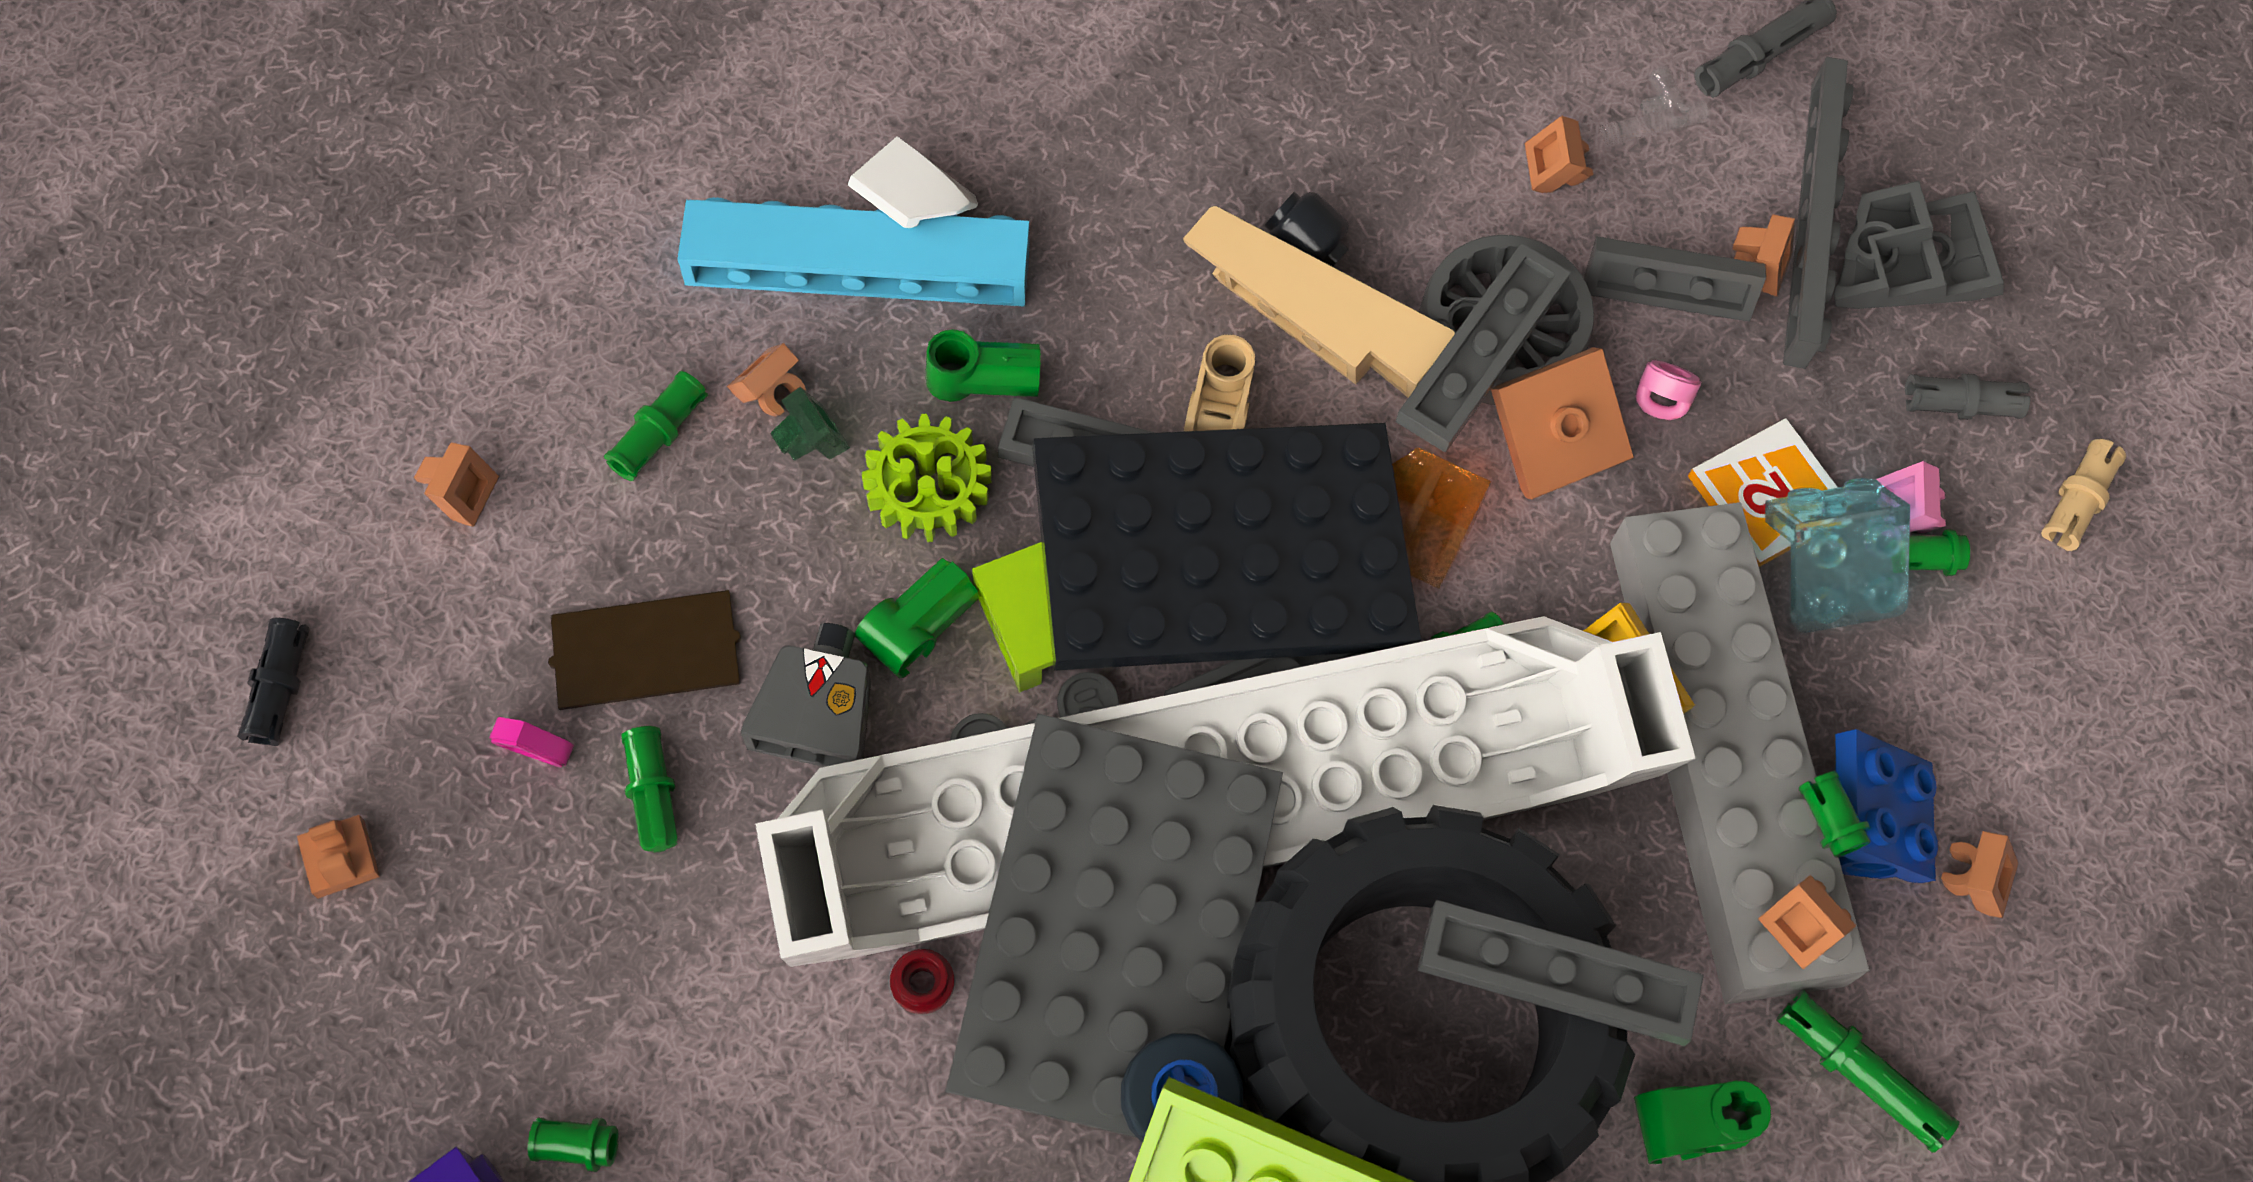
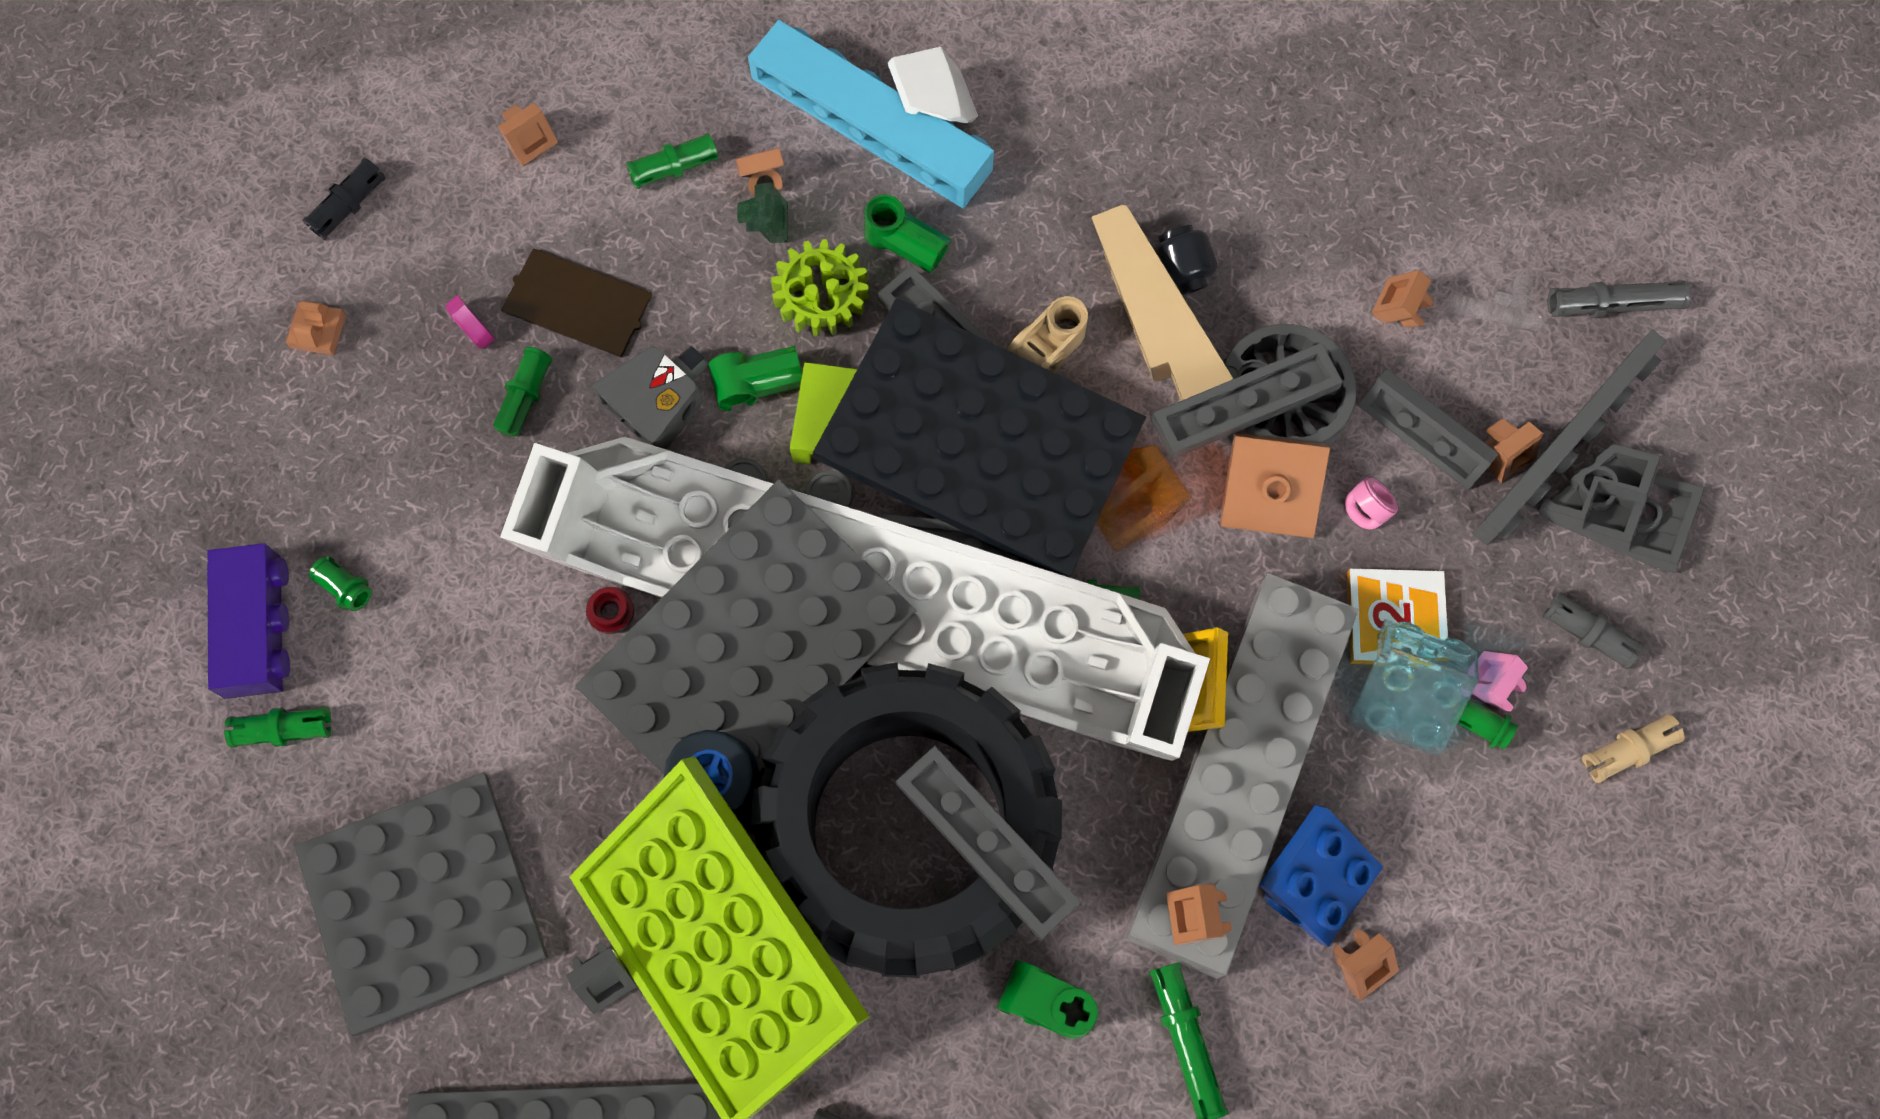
camera: 35 degrees right, 5 degrees up
(1835, 815) = (1268, 856): green pin -> none

